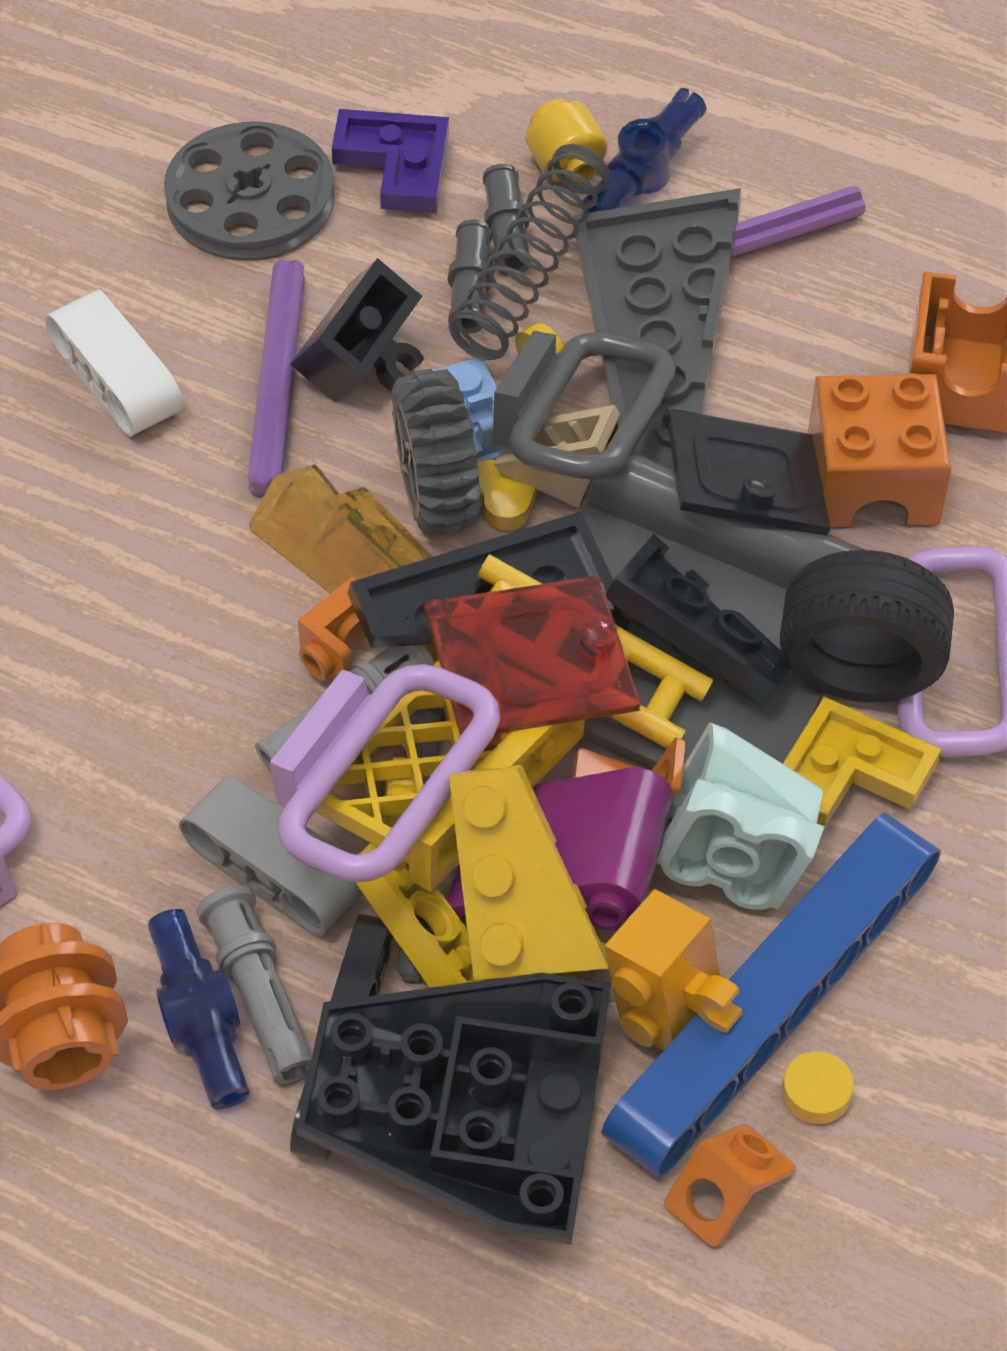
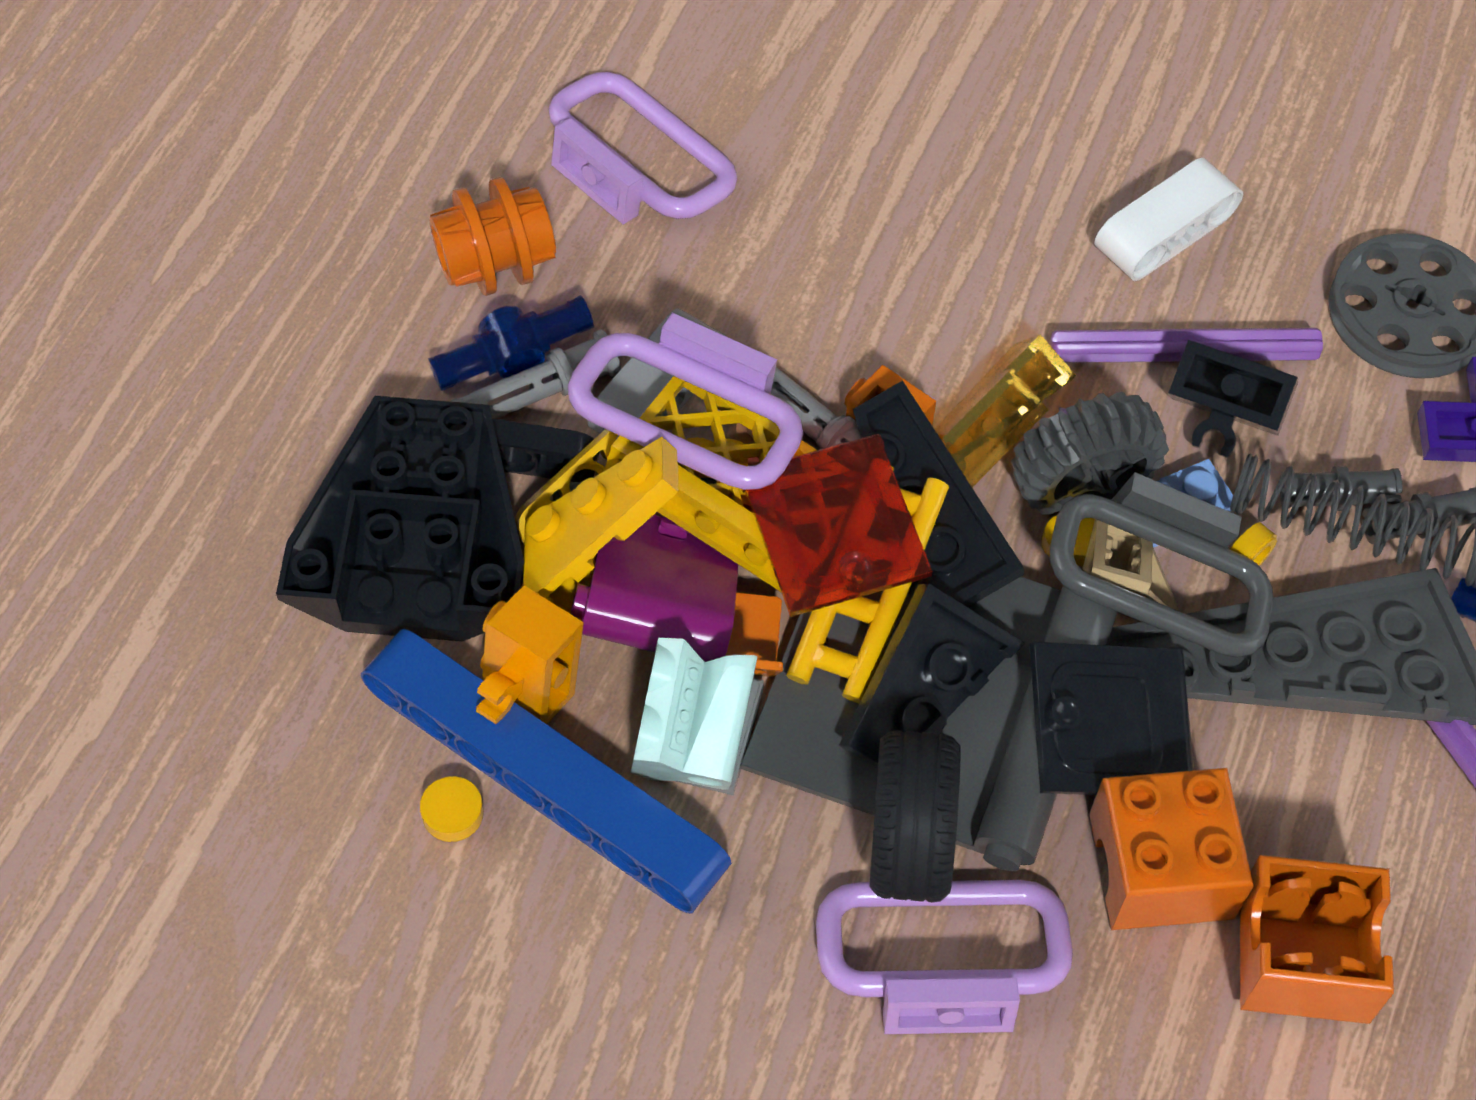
camera: 85 degrees right, 5 degrees up
(740, 1166) = (365, 739): orange bracket -> none
(857, 749) = (807, 828): yellow plate -> none

